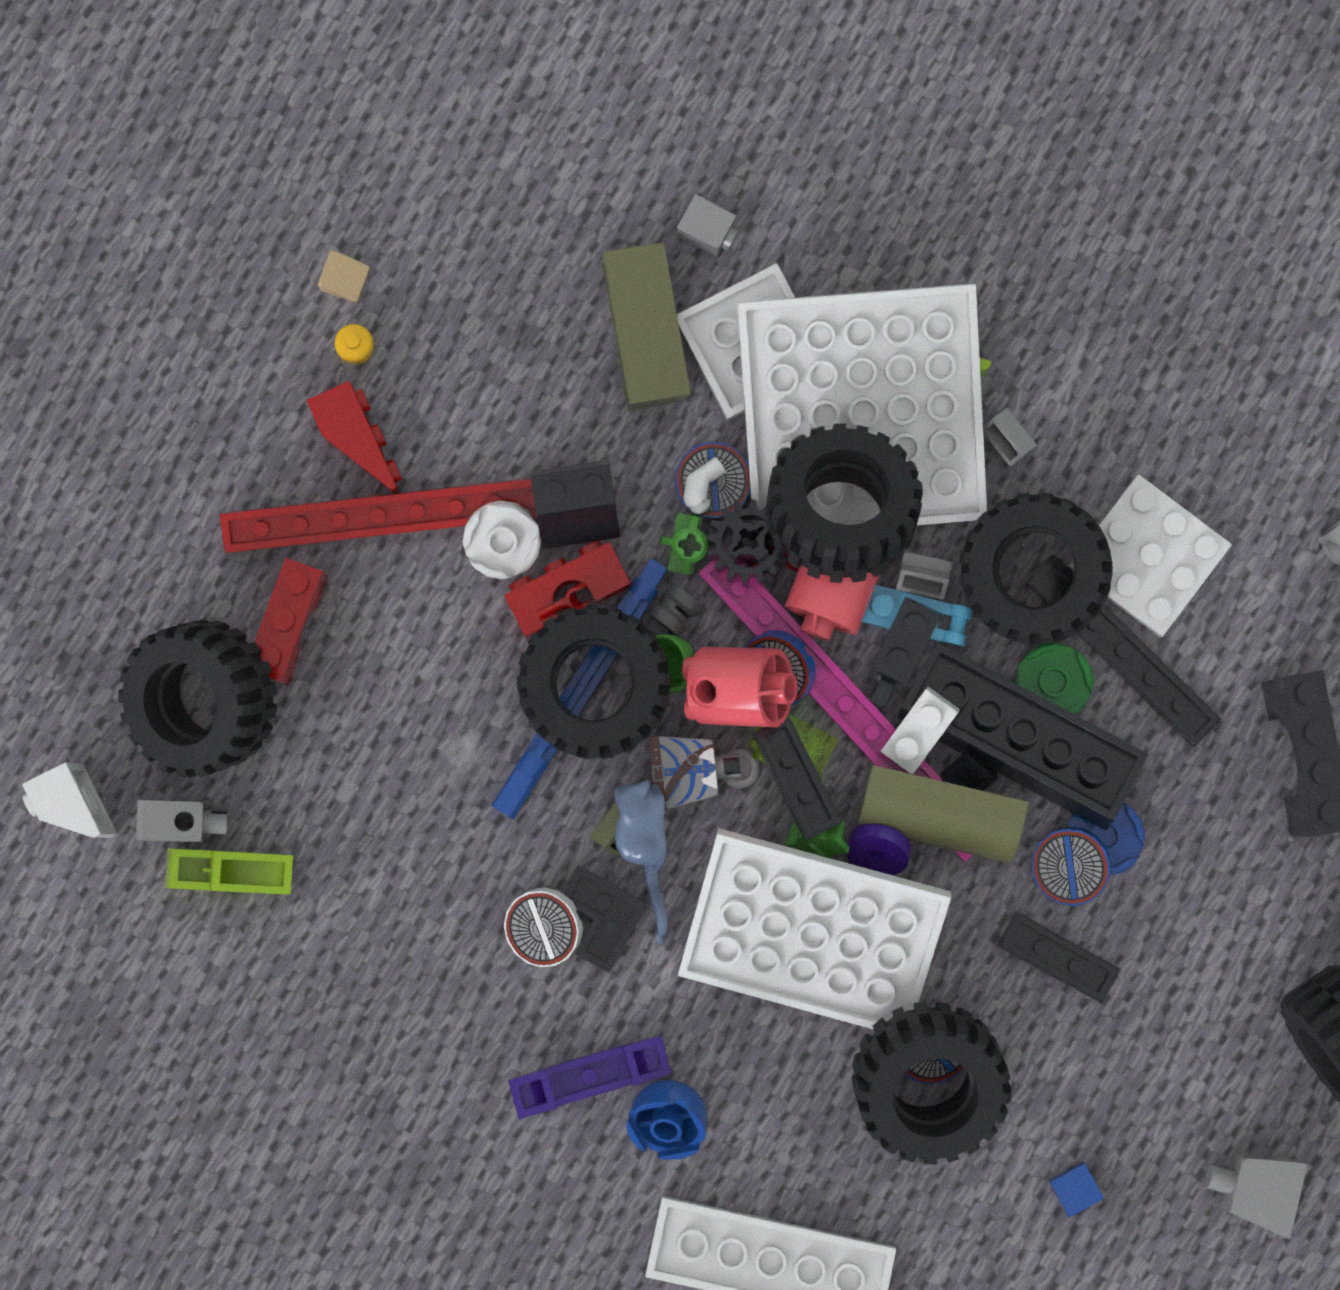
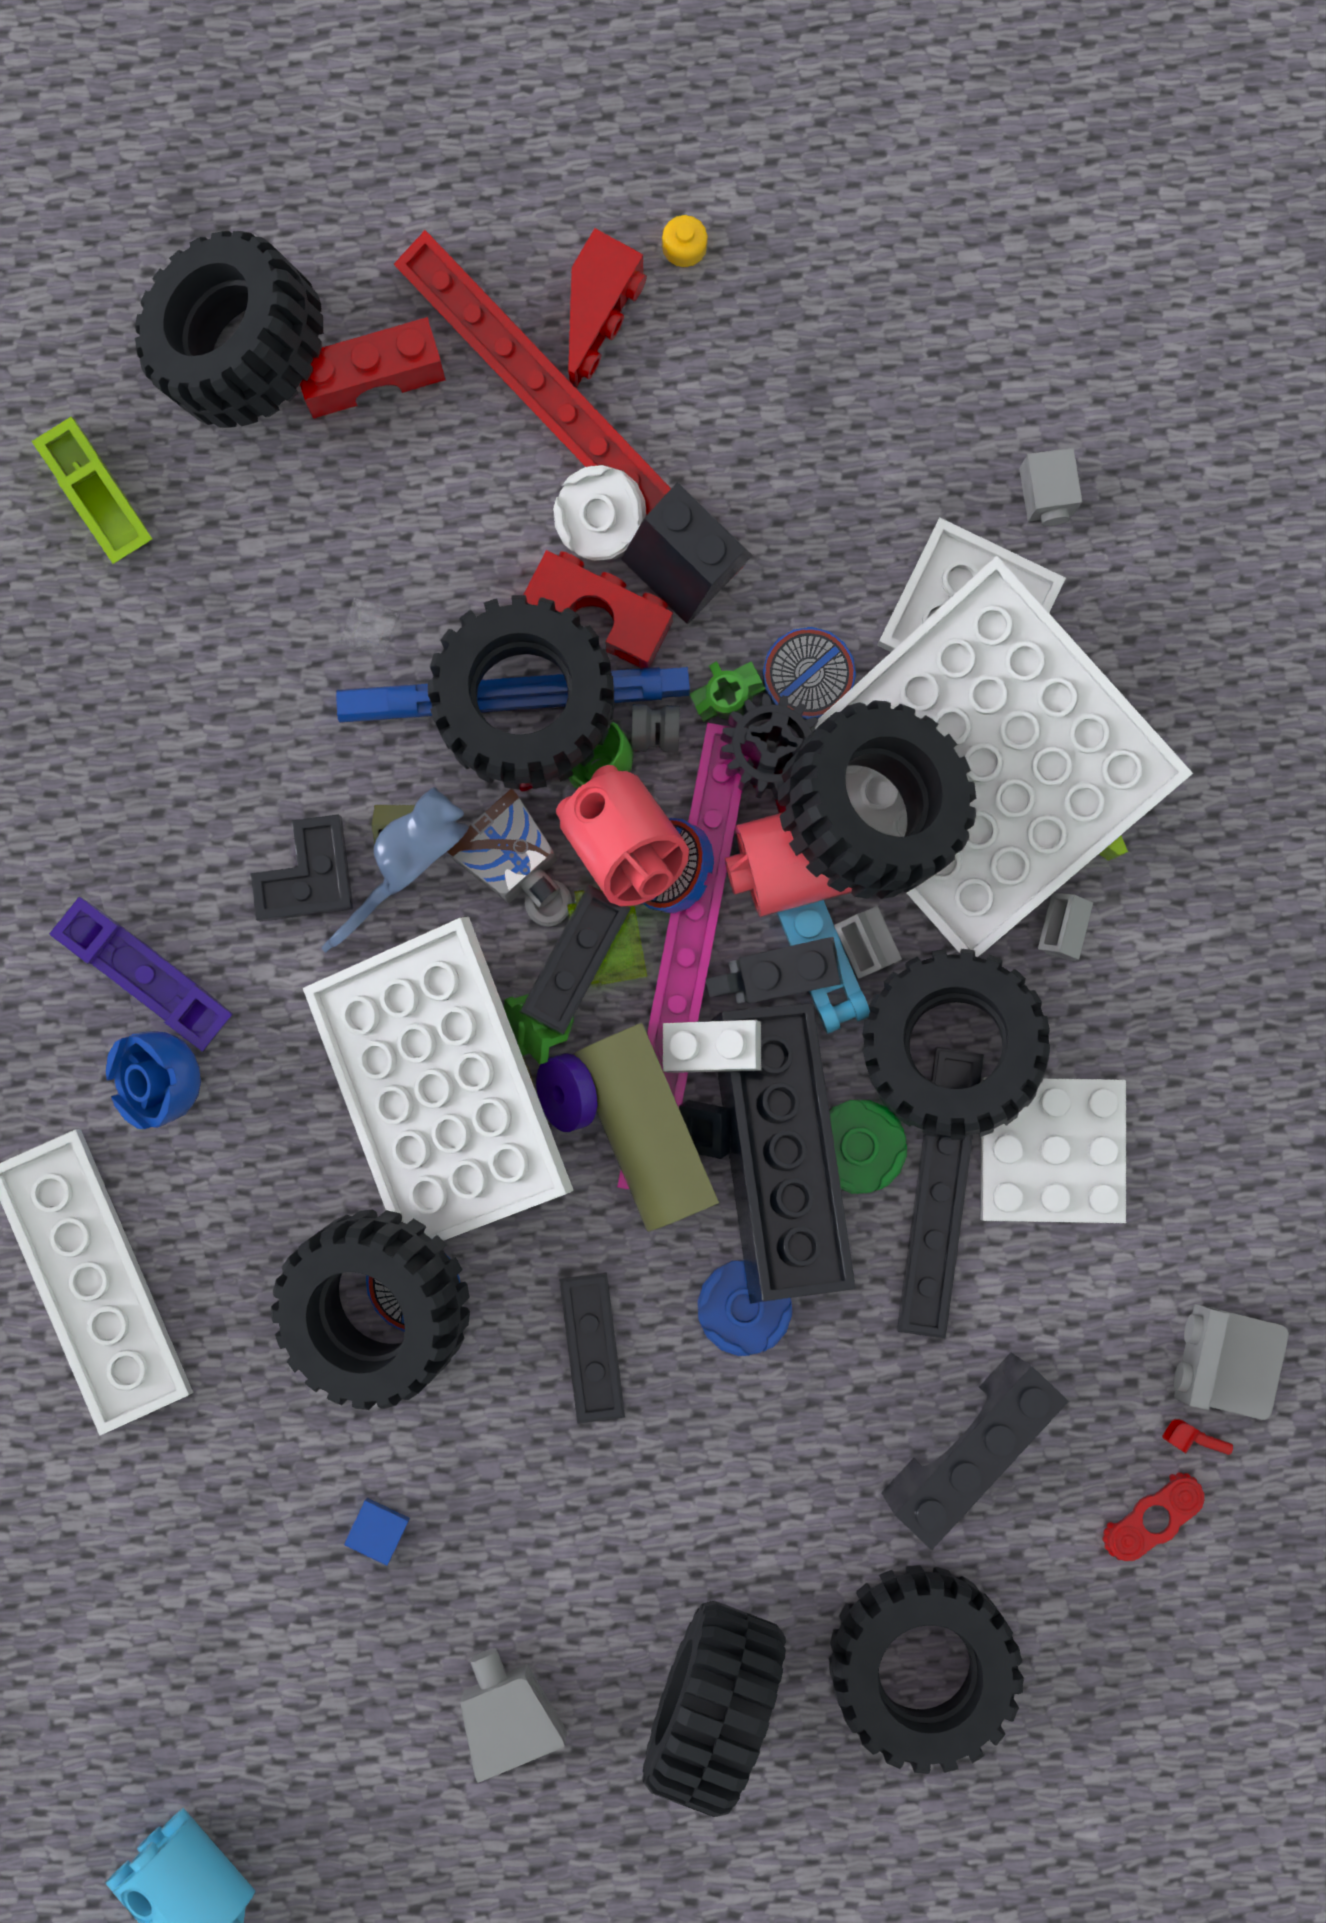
camera: 50 degrees right, 0 degrees up
(68, 801) = (46, 287): white slope -> none
(158, 818) = (93, 391): light grey torso -> none
(343, 276) = (741, 182): tan slope -> none
(543, 927) = (254, 824): tile -> none
(565, 603) = (588, 614): red hand -> none
(645, 326) = (908, 497): olive brick -> none
(697, 485) = (791, 659): white arm -> none
(1071, 866) = (690, 1294): tile -> none

